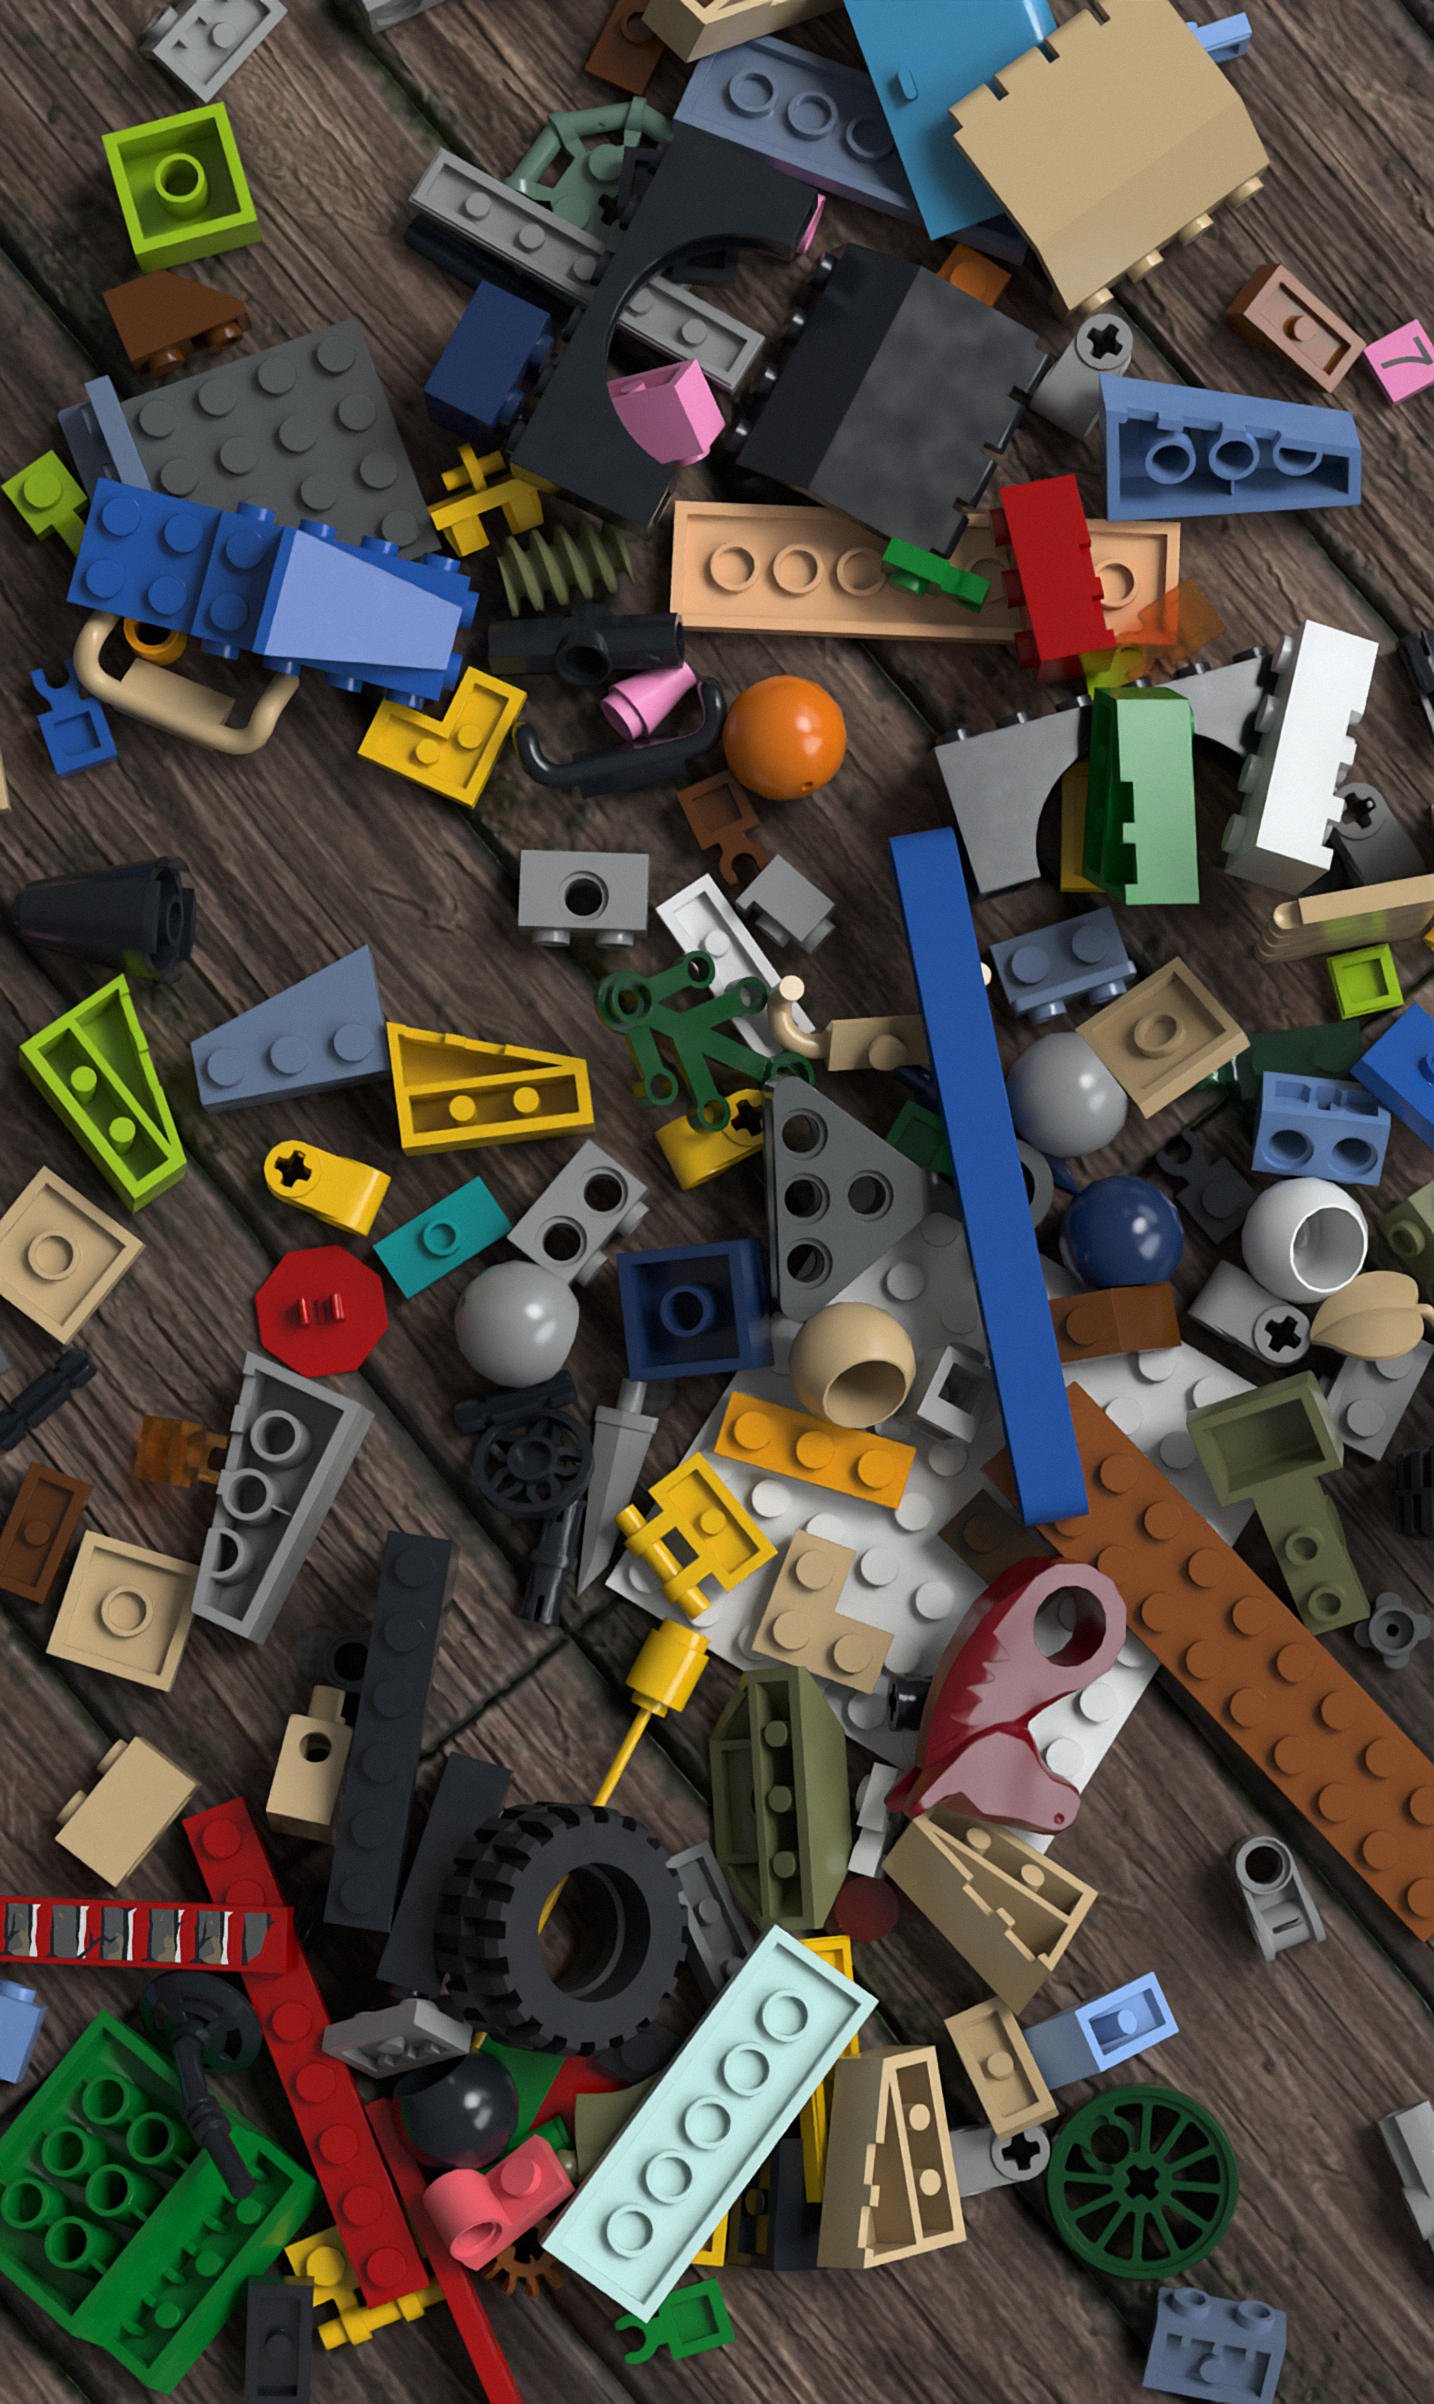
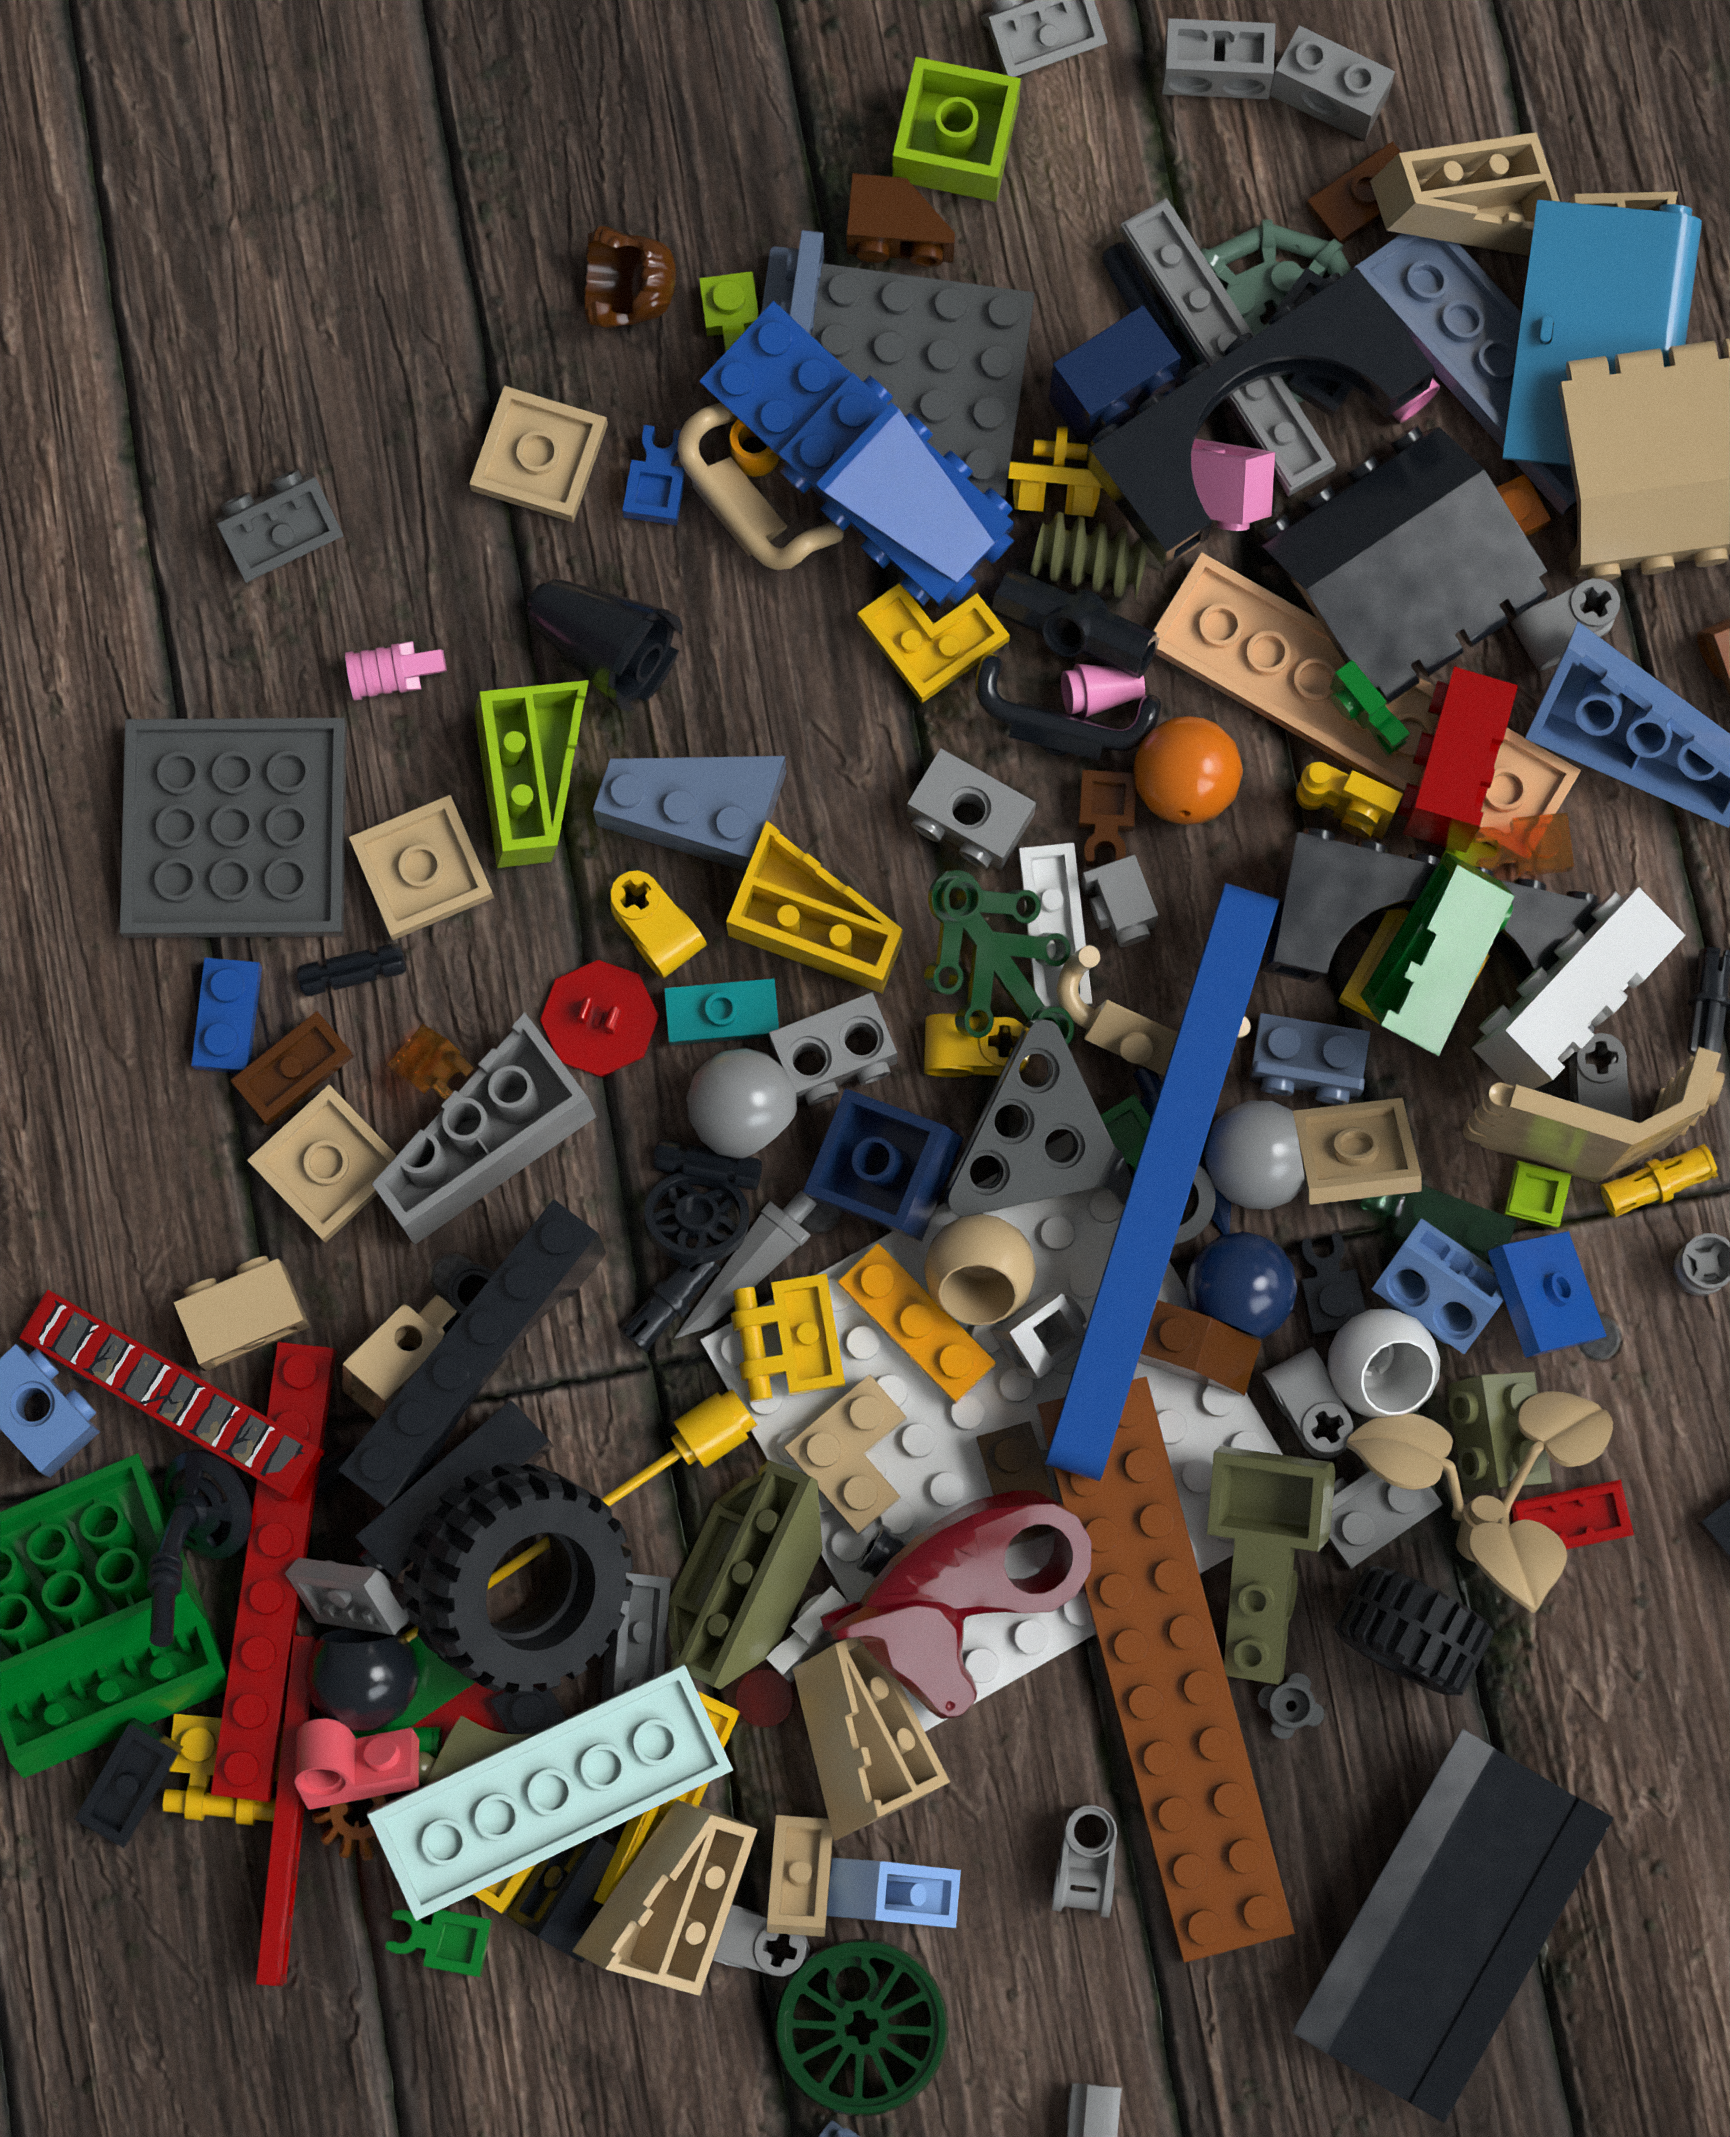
camera: 25 degrees right, 5 degrees down
(973, 678) = (1356, 799): none -> yellow plate

